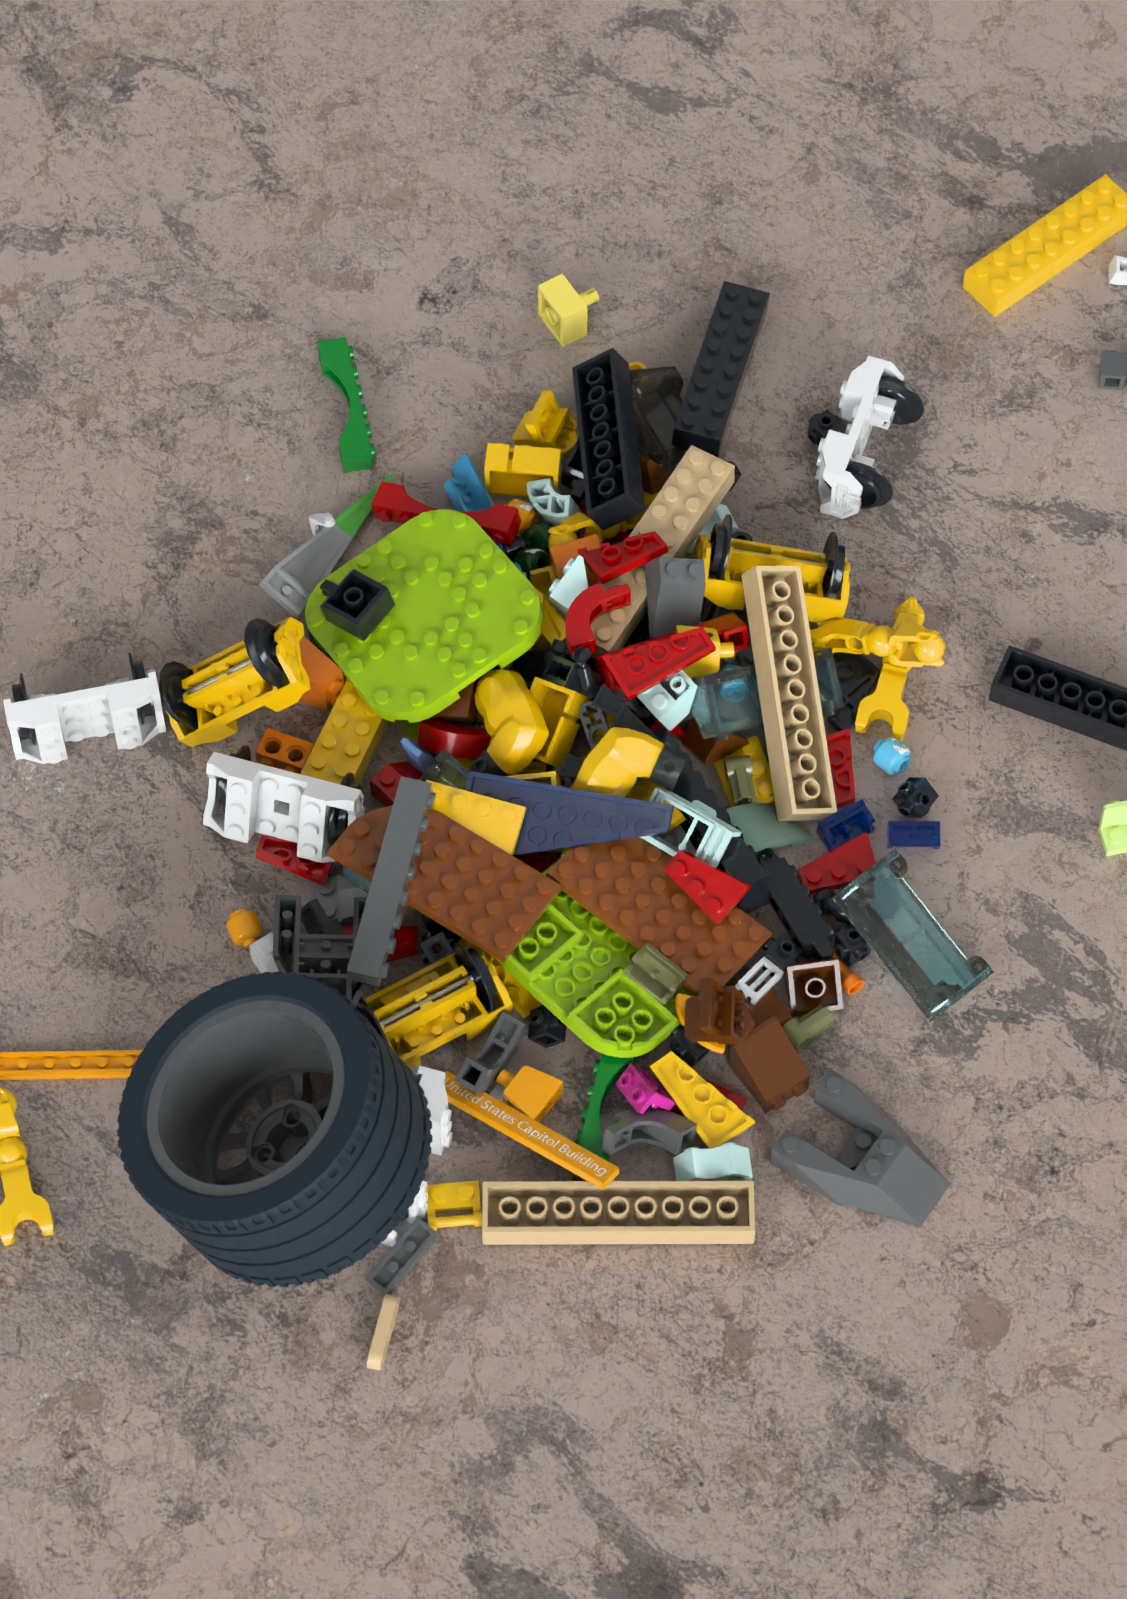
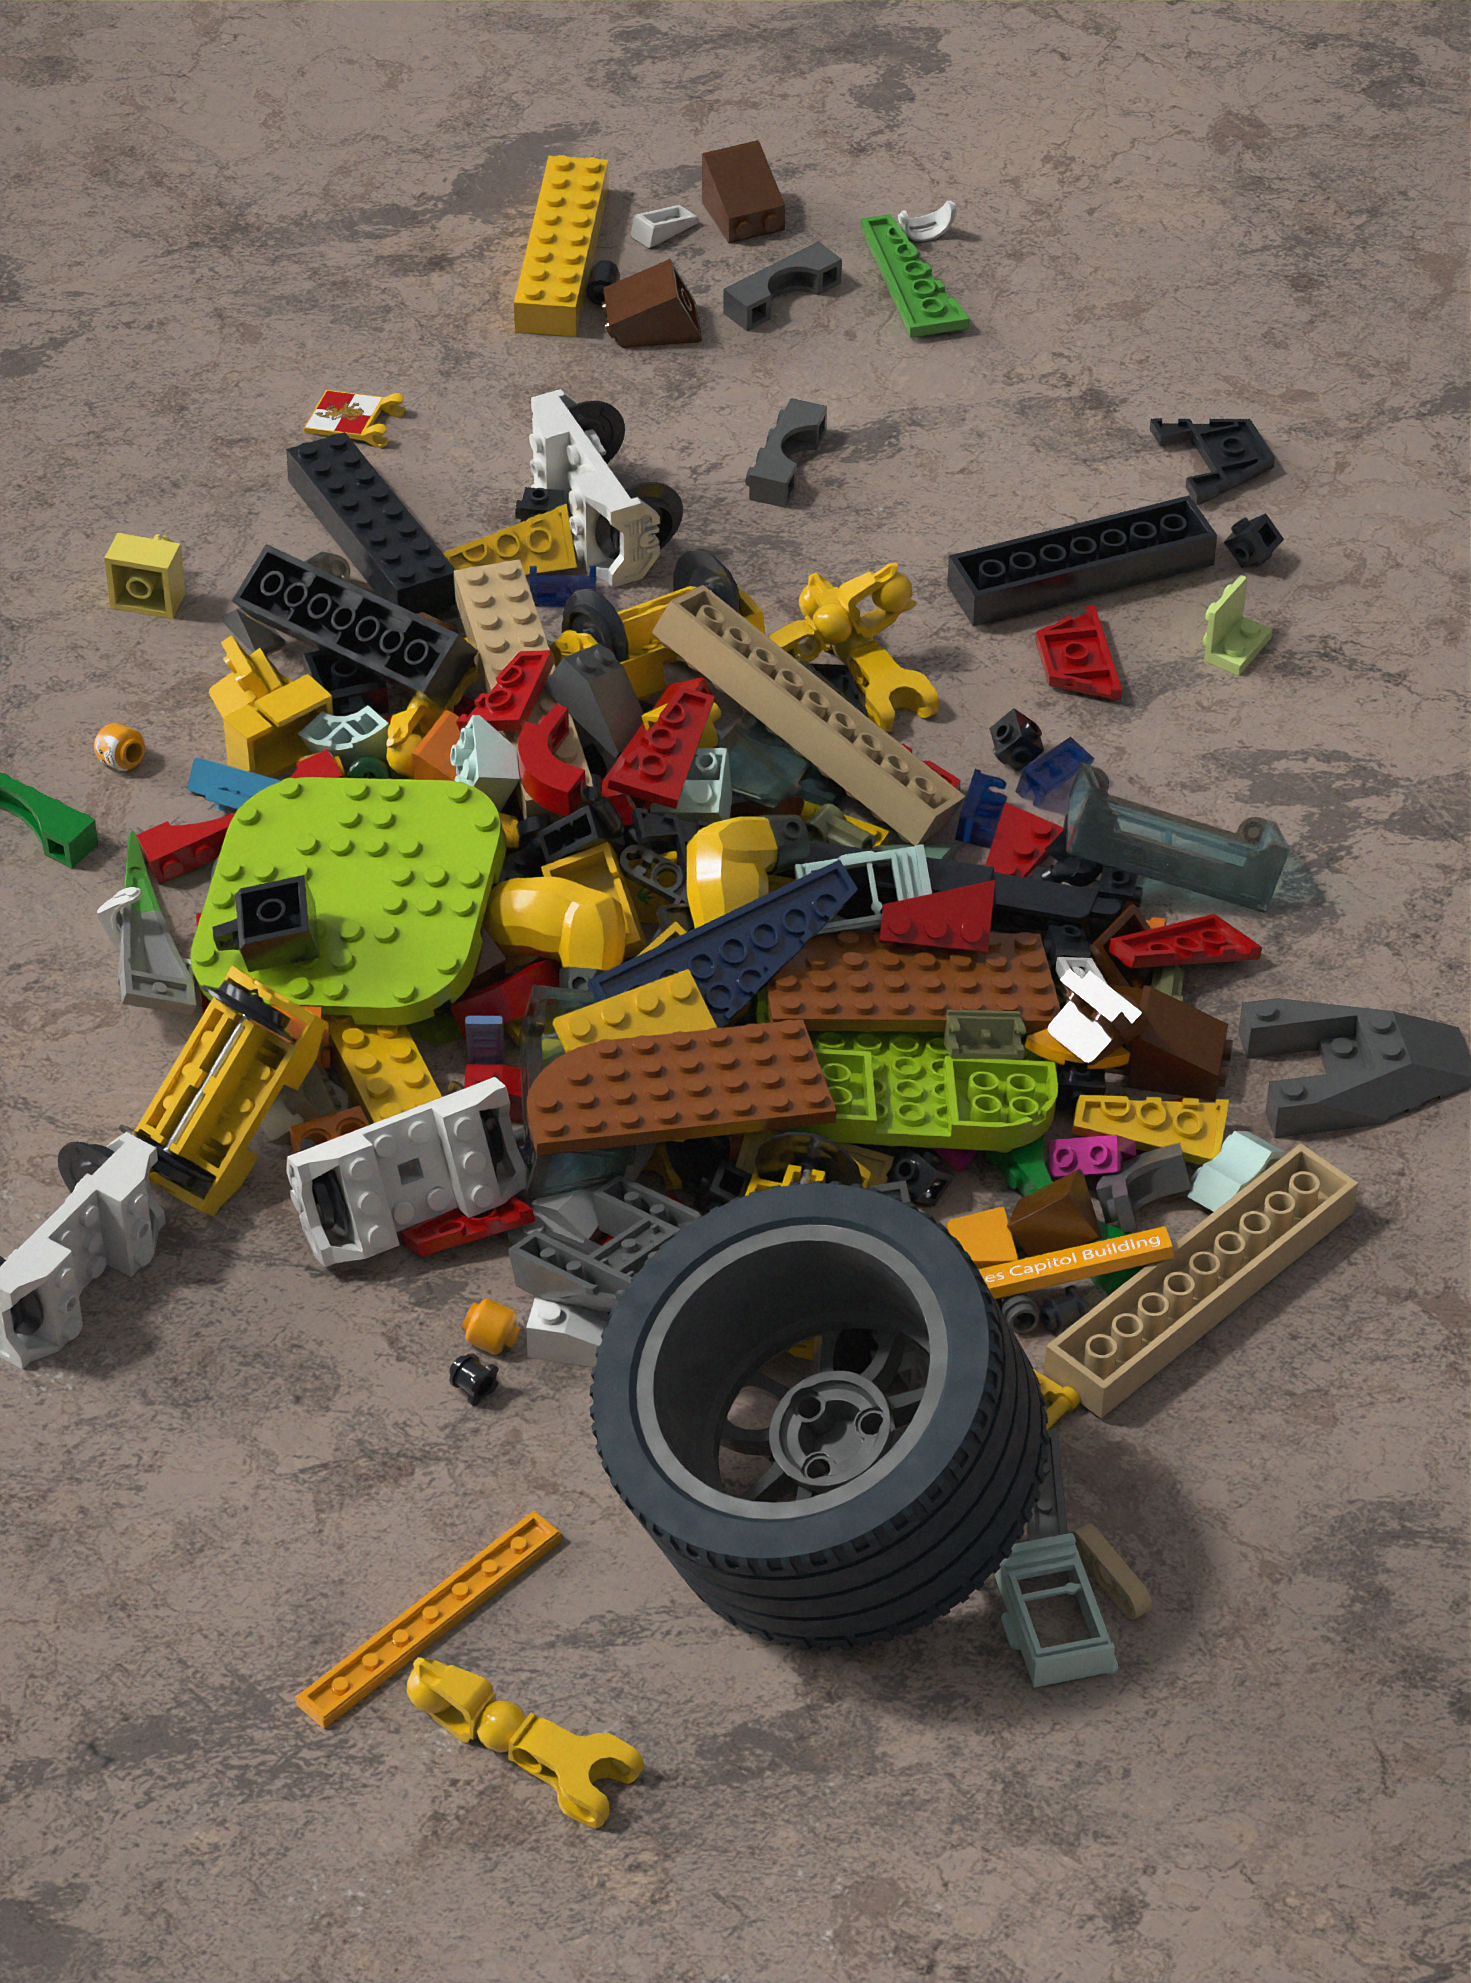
camera: 45 degrees left, 15 degrees down
(205, 949) = (473, 1377): none -> black brick
(299, 720) = (314, 1099): none -> dark tan piece
(353, 1298) = (1061, 1661): none -> light aqua piece
(390, 881) = (639, 1105): dark grey brick -> none
(439, 414) = (119, 746): none -> light orange head
(508, 1149) = (1020, 1312): none -> dark grey cone
(530, 1168) = (1063, 1311): none -> black brick
(577, 1111) = (1055, 1217): none -> reddish brown slope
(781, 447) = (537, 542): none -> yellow wing
(786, 492) = (556, 589): none -> clear blue hinge
(801, 277) = (354, 415): none -> flag
(853, 1007) = (1186, 942): none -> red wing
(891, 756) = (949, 723): medium azure head -> none
(1022, 768) = (1078, 656): none -> red wing
(1040, 484) = (797, 430): none -> dark grey arch
(1045, 291) = (601, 275): none -> black brick
(1050, 334) = (651, 309): none -> reddish brown slope

